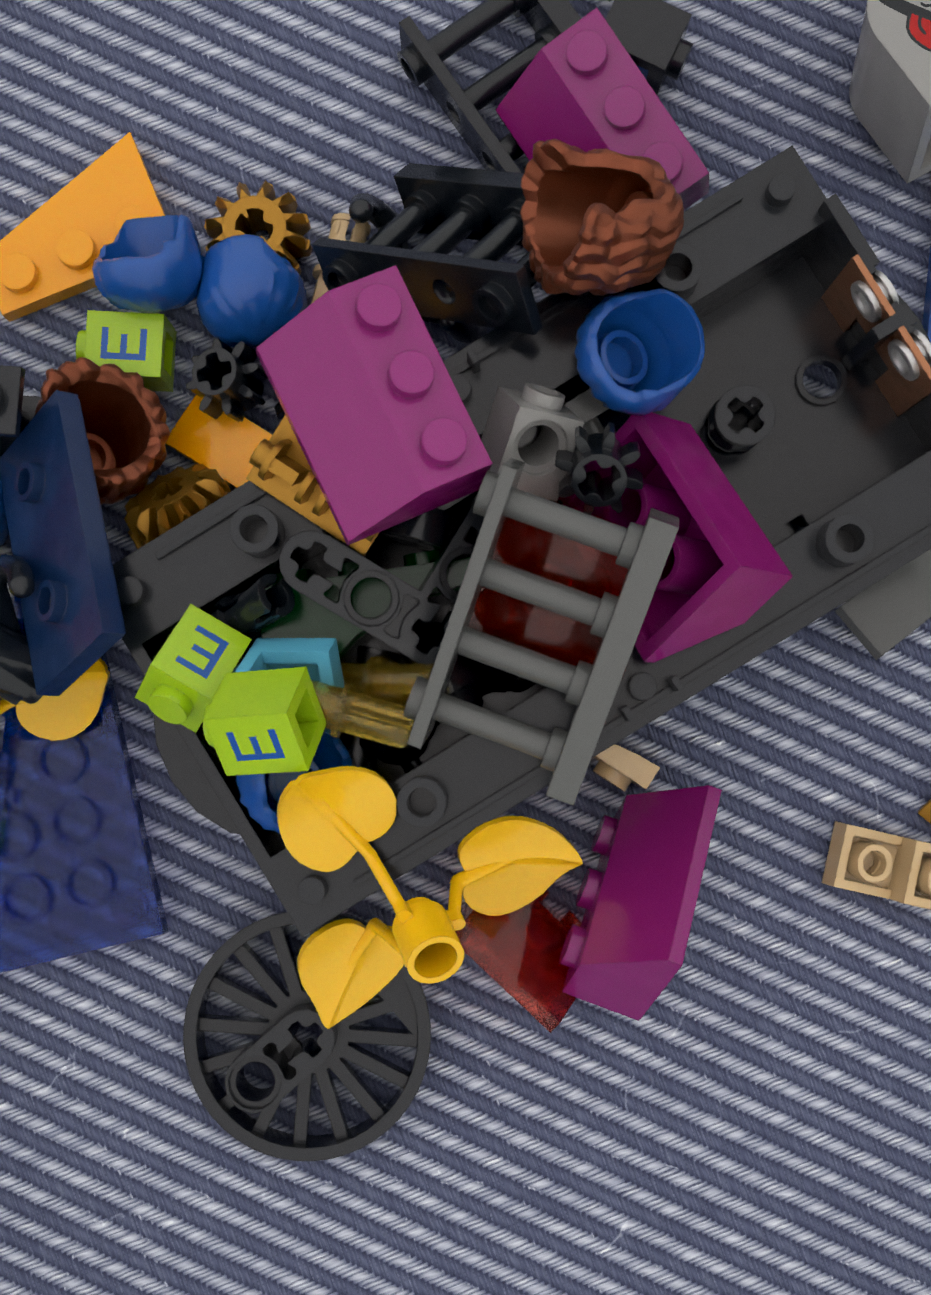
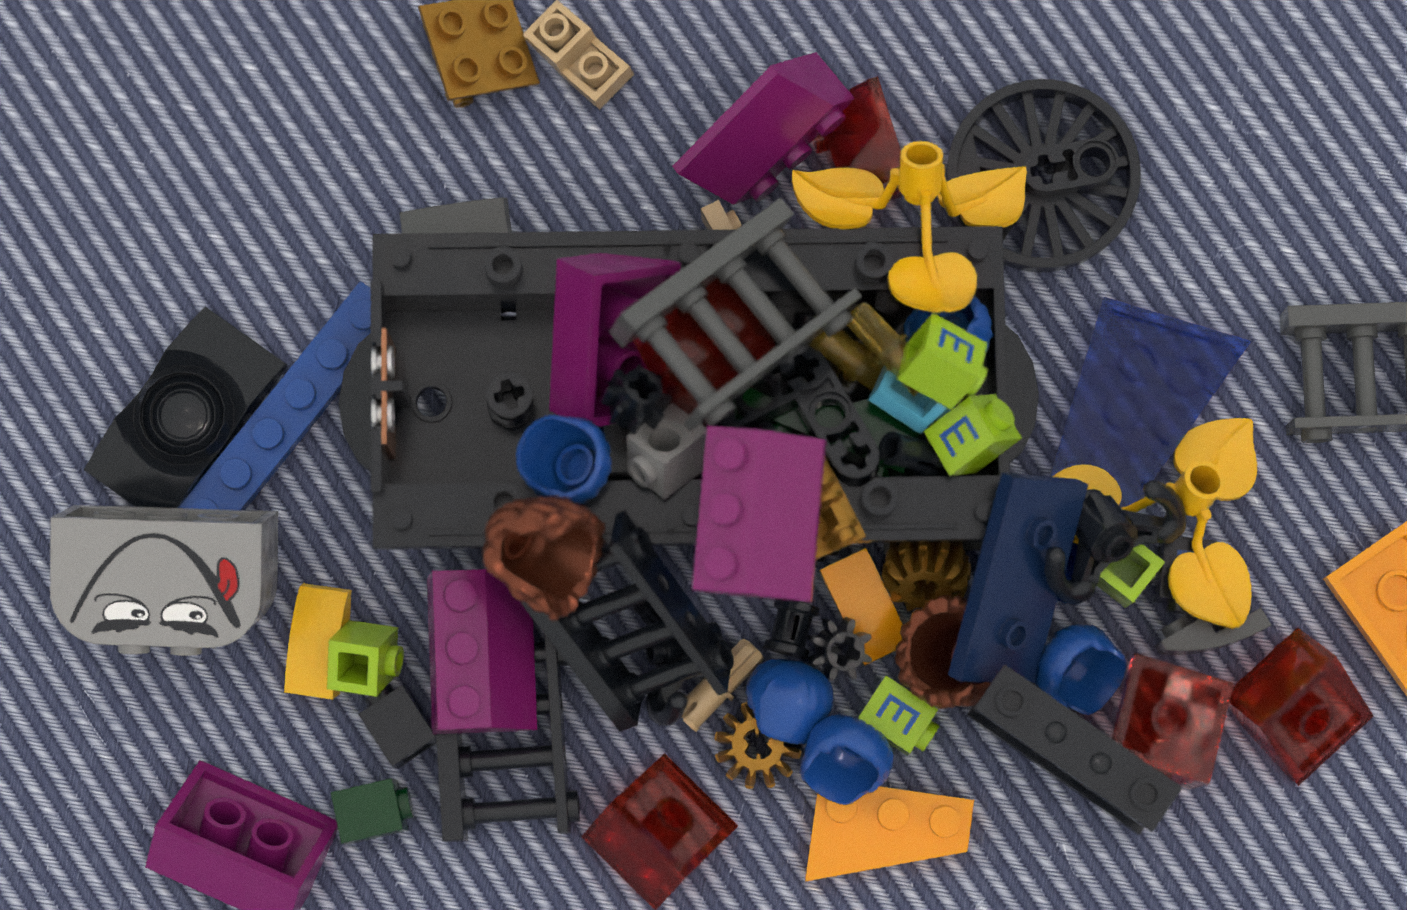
camera: 140 degrees left, 5 degrees down
(306, 92) = (659, 831): none -> clear red slope
(722, 77) = (364, 658): none -> lime brick
(785, 82) = (315, 620): none -> yellow slope

